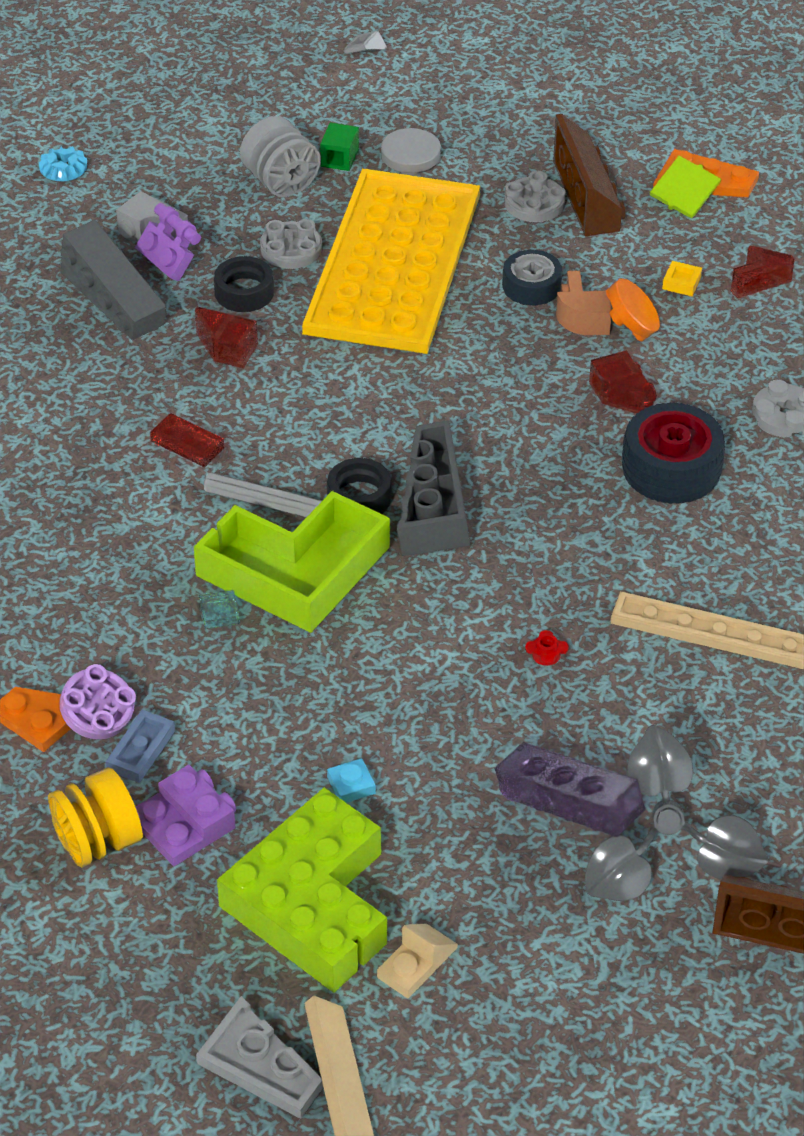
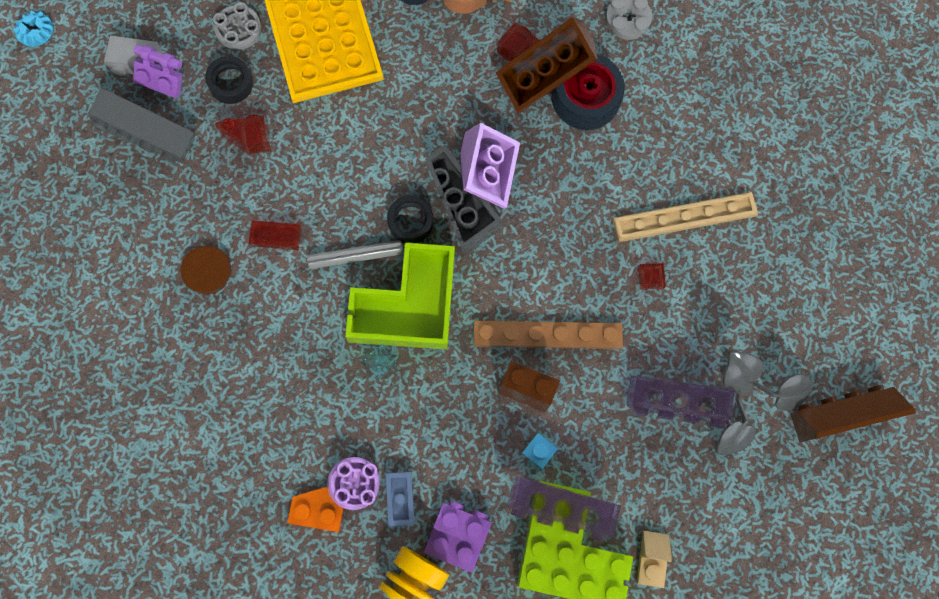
camera: 35 degrees left, 30 degrees up
(83, 441) = (206, 270): none -> reddish brown tile
(330, 809) = (605, 512): none -> clear purple brick
(379, 690) = (529, 386): none -> reddish brown brick
(450, 672) = (548, 334): none -> medium nougat plate
(491, 460) = (488, 164): none -> lavender slope
(546, 648) = (589, 288): red plate -> none
(629, 671) = (651, 276): none -> clear red tile
(631, 386) = (548, 64): none -> reddish brown slope

